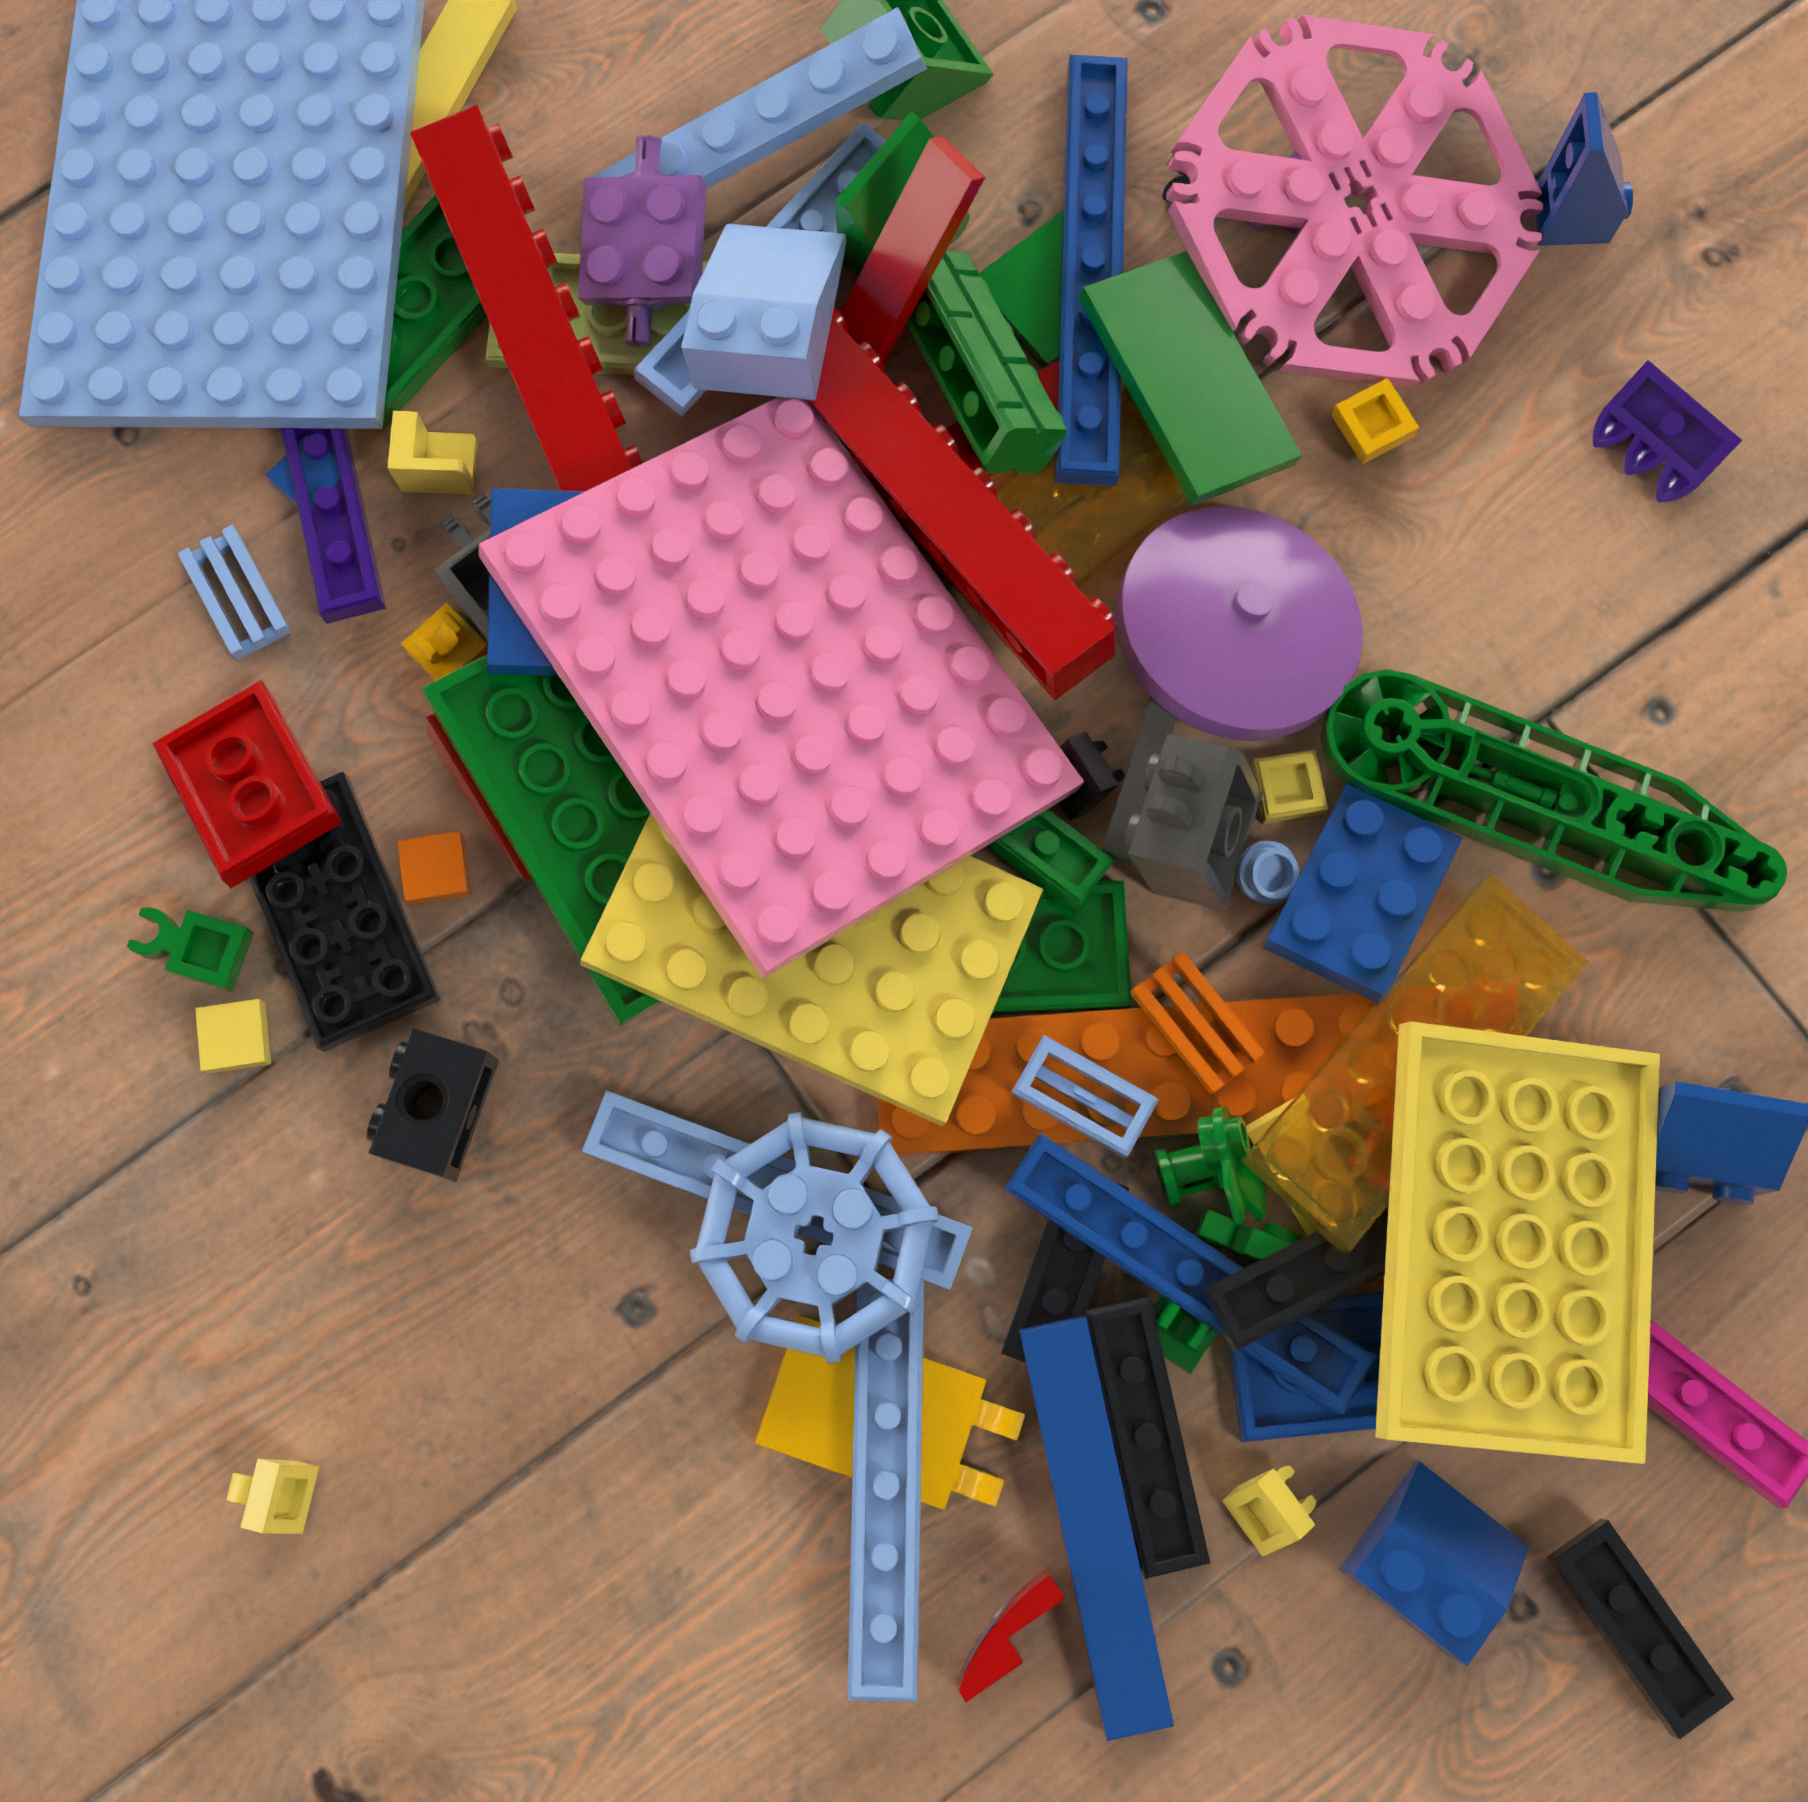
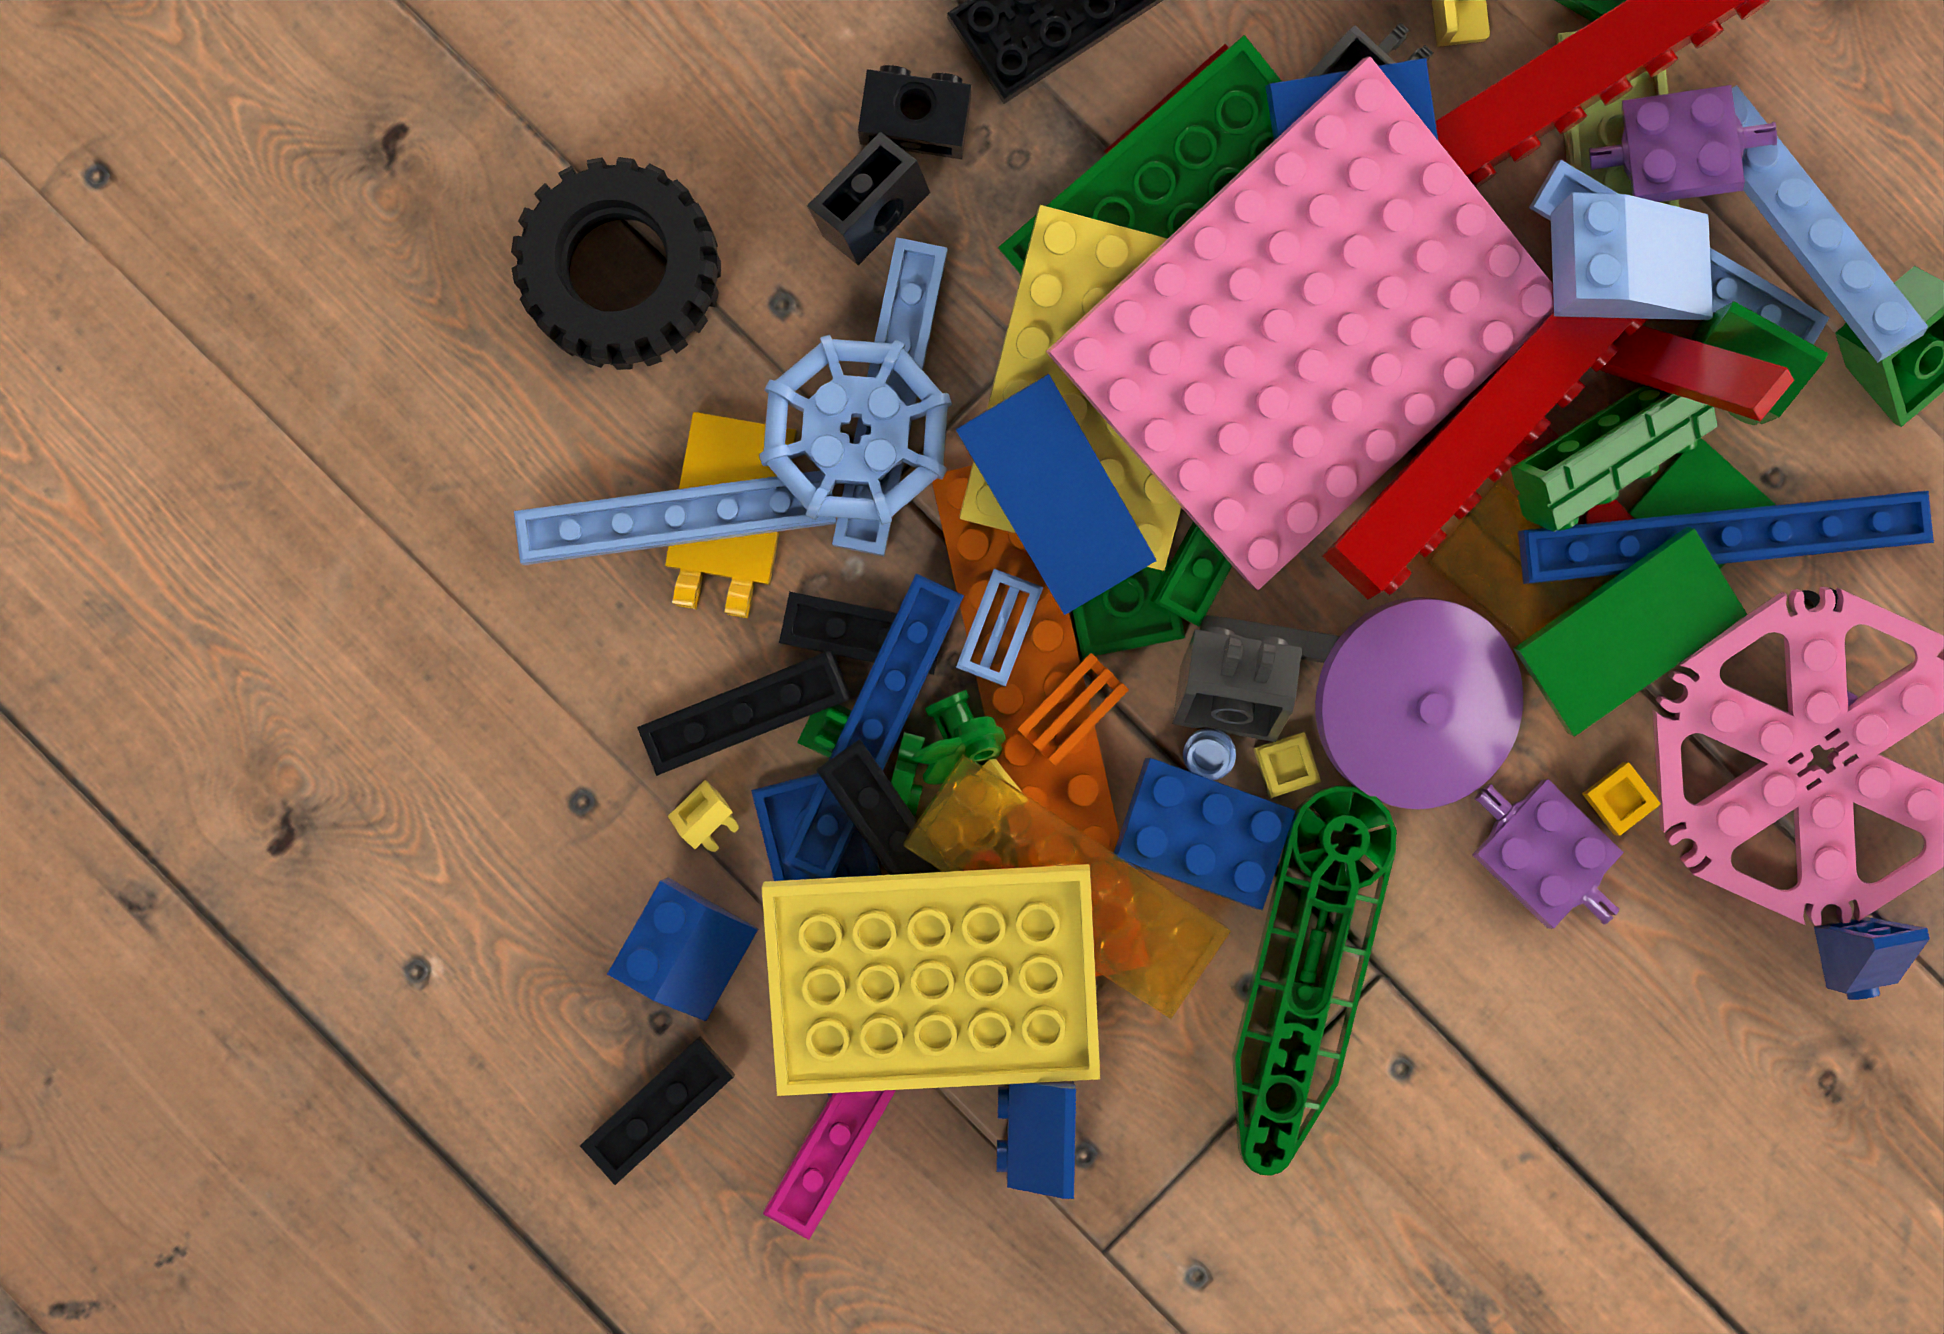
camera: 75 degrees right, 10 degrees up
(275, 1495) = (598, 52): light yellow tile -> none
(434, 868) = (1109, 76): orange tile -> none
(444, 643) = (1297, 48): yellow tile -> none
(462, 1533) = (575, 209): none -> black tyre
(528, 1176) = (869, 198): none -> black brick
(935, 998) = (1056, 494): none -> blue tile
(994, 1651) = (568, 621): red slope -> none
(1092, 768) = (1270, 596): black tile -> none
(1096, 1528) = (671, 682): blue tile -> none
(1428, 511) = (1547, 853): none -> medium lavender plate
(1666, 428) = (1653, 1049): dark purple plate -> none

